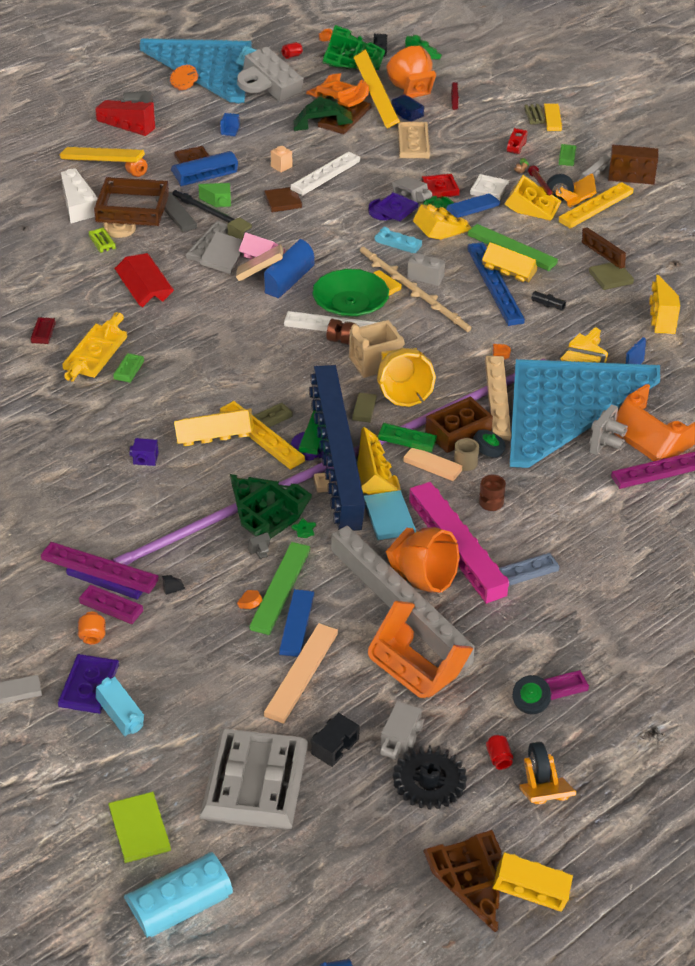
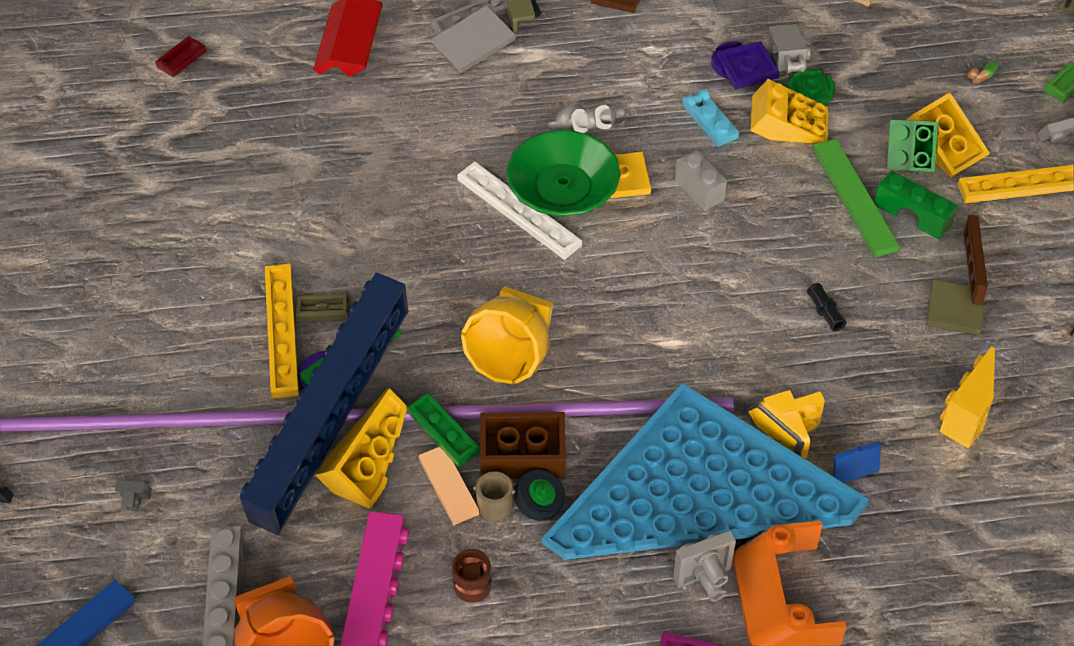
camera: 35 degrees right, 10 degrees up
(95, 349) = (207, 111): yellow plate -> none
(128, 367) = (221, 155): bright green plate -> none
(144, 451) = (130, 285): dark purple brick -> none
(214, 426) = (230, 290): yellow slope -> none
(250, 599) = (56, 564): orange tile -> none
(254, 246) = (521, 54): bright pink slope -> none
(259, 262) = (491, 76): tan tile -> none
(268, 505) = (178, 441): dark green wedge -> none
(280, 588) = (105, 567): bright green tile -> none
(289, 270) = (524, 99): blue brick -> none
(304, 529) = (211, 502): green plate -> none
(336, 262) = (584, 119): none -> light grey animal
(339, 331) = (506, 225): copper wheel -> none
(364, 407) = (439, 353): olive tile -> none
(368, 343) = (520, 265): tan container -> none
(388, 514) = (325, 533): medium azure tile -> none
(416, 291) = (663, 209): tan plant -> none
(442, 185) = (839, 57): red plate -> none
(473, 205) = (851, 108): blue tile -> none
(489, 184) = (908, 87): white tile -> none
(497, 287) = (780, 246): blue tile -> none
(498, 396) = (616, 427): tan plate -> none
(501, 350) = (692, 356): orange tile -> none
(509, 263) = (816, 224): yellow slope -> none
(516, 142) = (1006, 31): red leg -> none
(526, 207) = (913, 145): none -> green brick
(534, 171) = (991, 88): dark red bar -> none
(561, 234) = (932, 210): none -> green arch
(573, 193) = (1011, 146): light orange plate -> none

